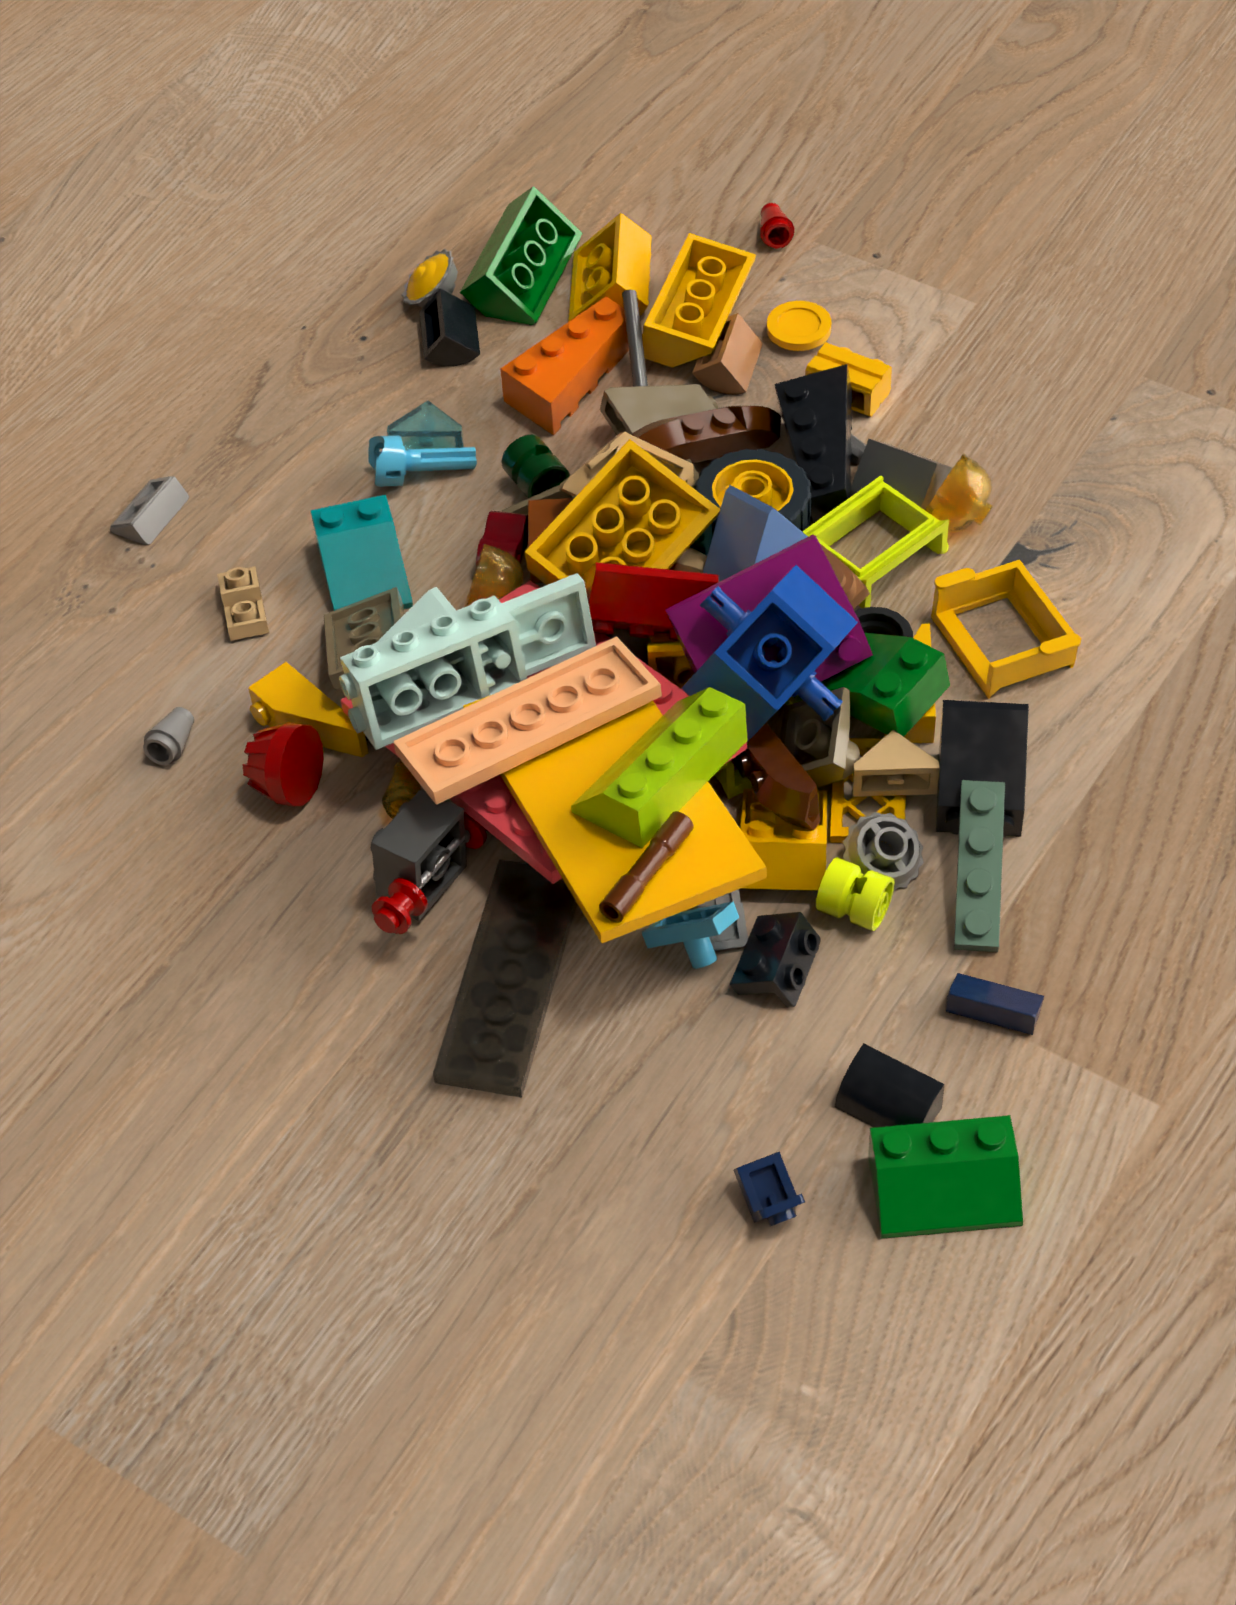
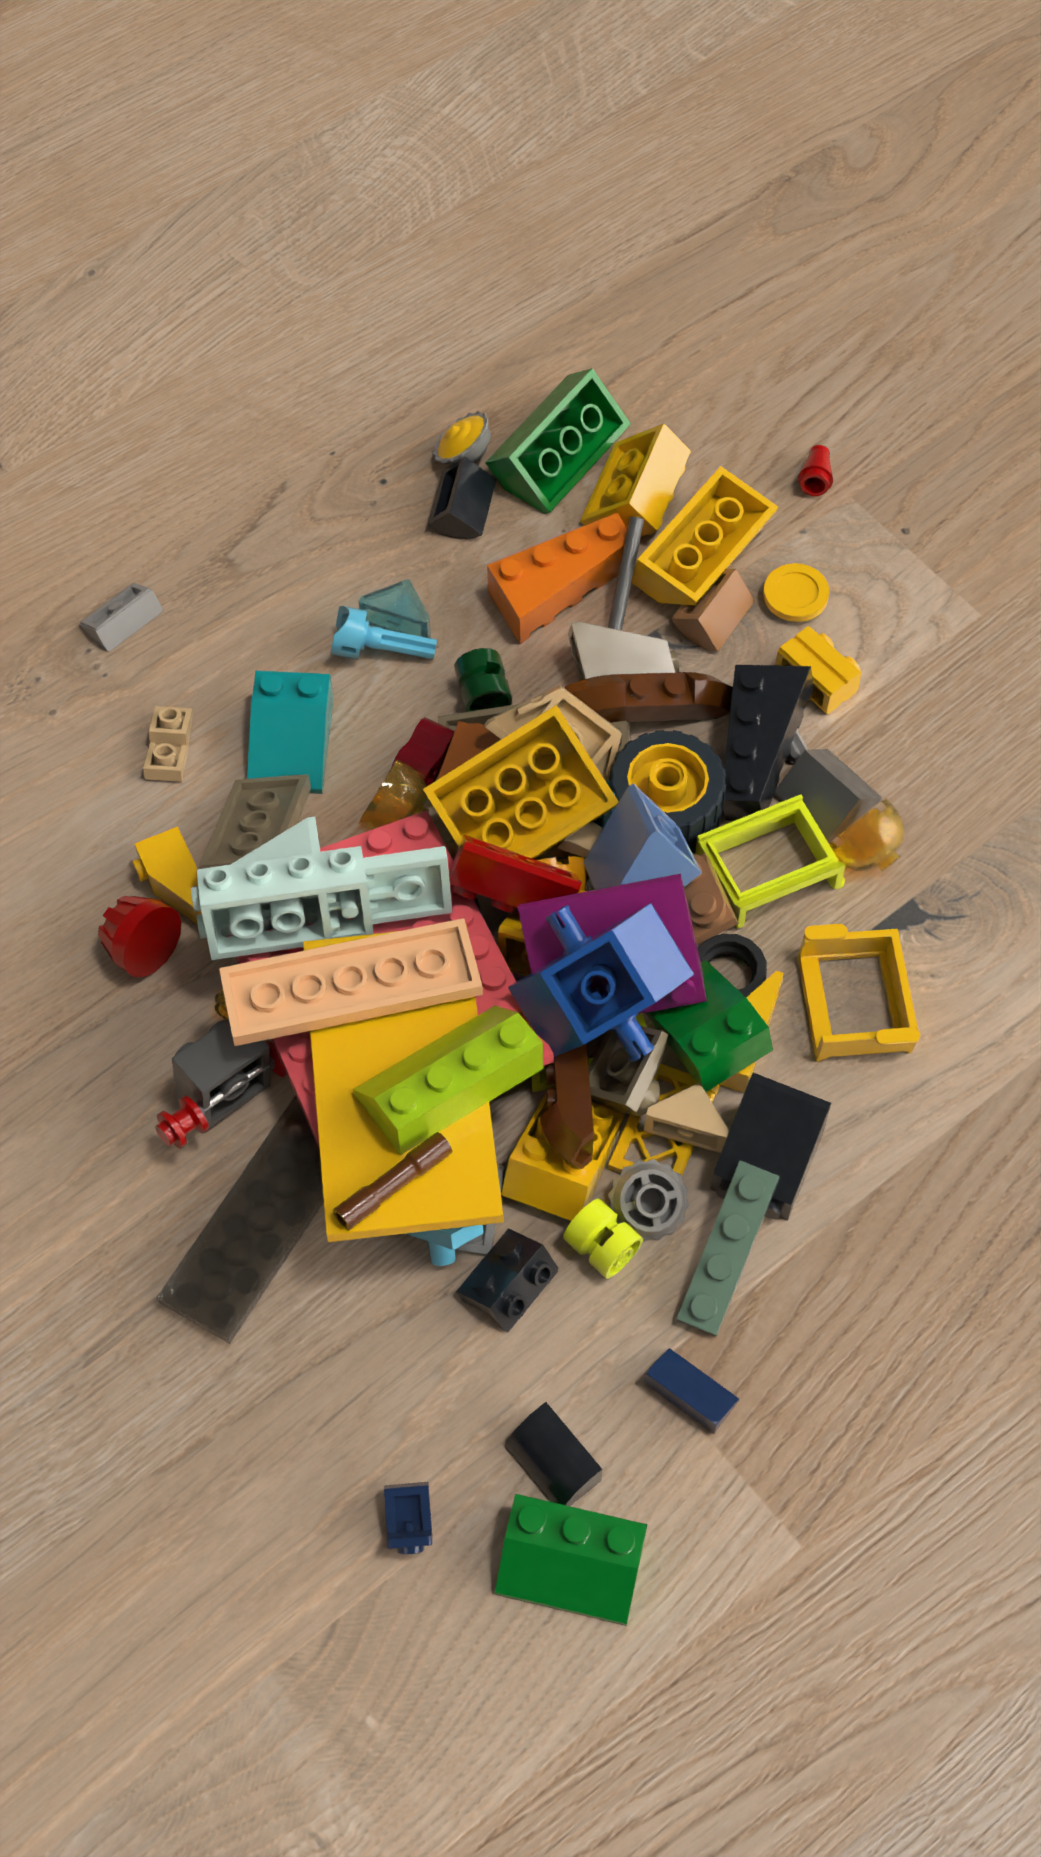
camera: 15 degrees right, 10 degrees up
(167, 738) = (51, 868): light grey cone -> none

